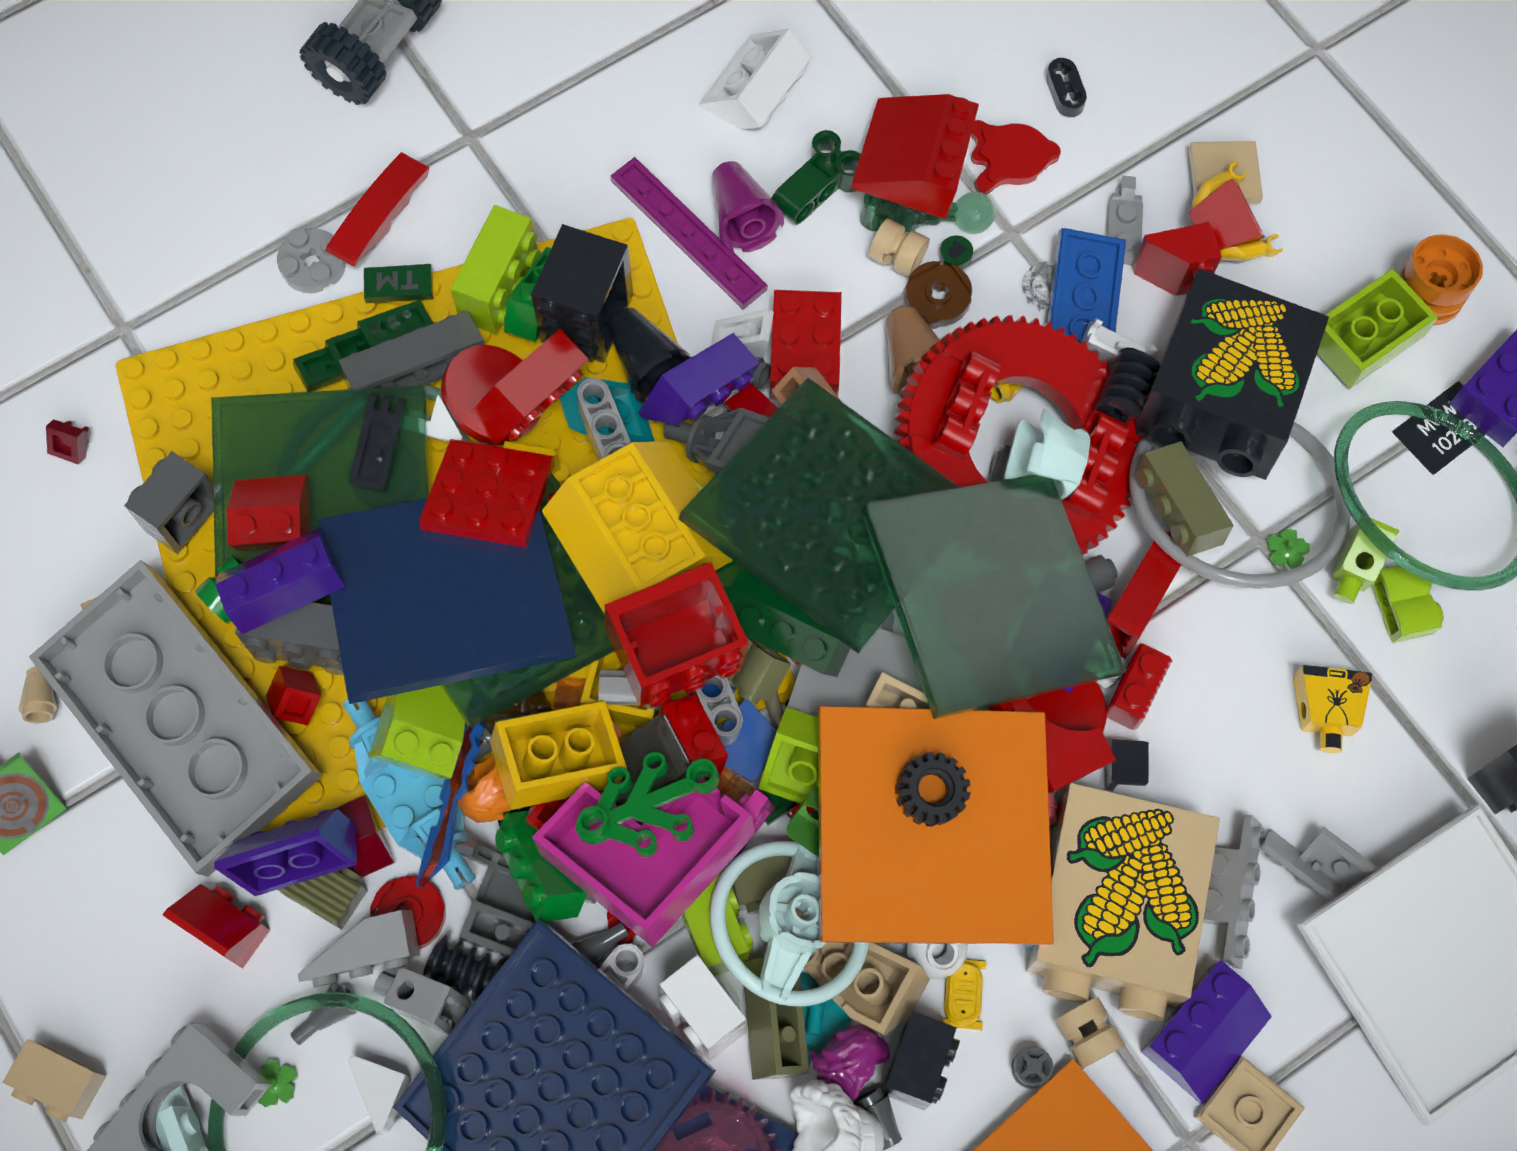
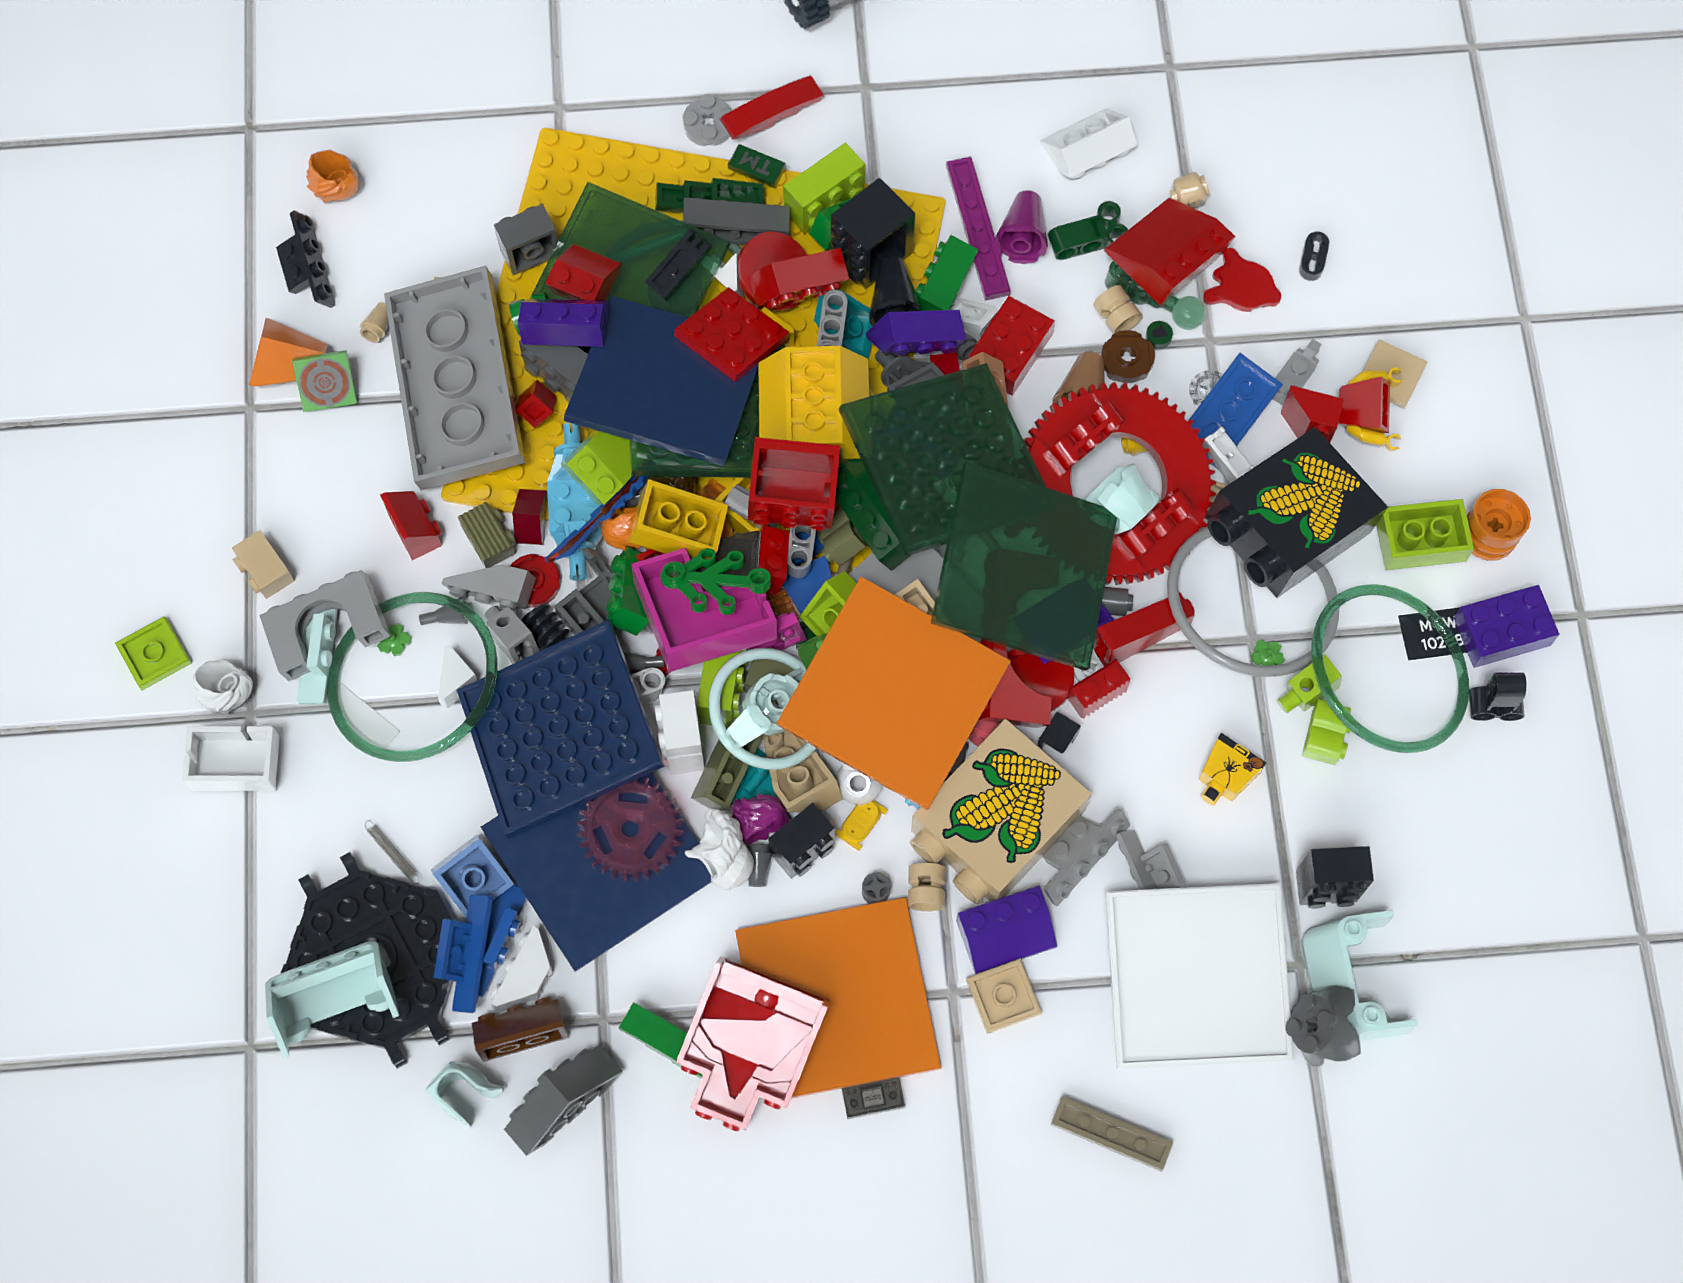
camera: 30 degrees right, 0 degrees up
(66, 441) = (482, 165): dark red tile -> none
(291, 853) = (478, 499): dark purple slope -> none
(688, 301) = (945, 274): none -> green brick
(896, 78) = (1190, 189): none -> tan head
(955, 789) = (909, 650): black tyre -> none
(1128, 384) = (1210, 480): black piece -> none
(1183, 499) = (1202, 577): olive brick -> none

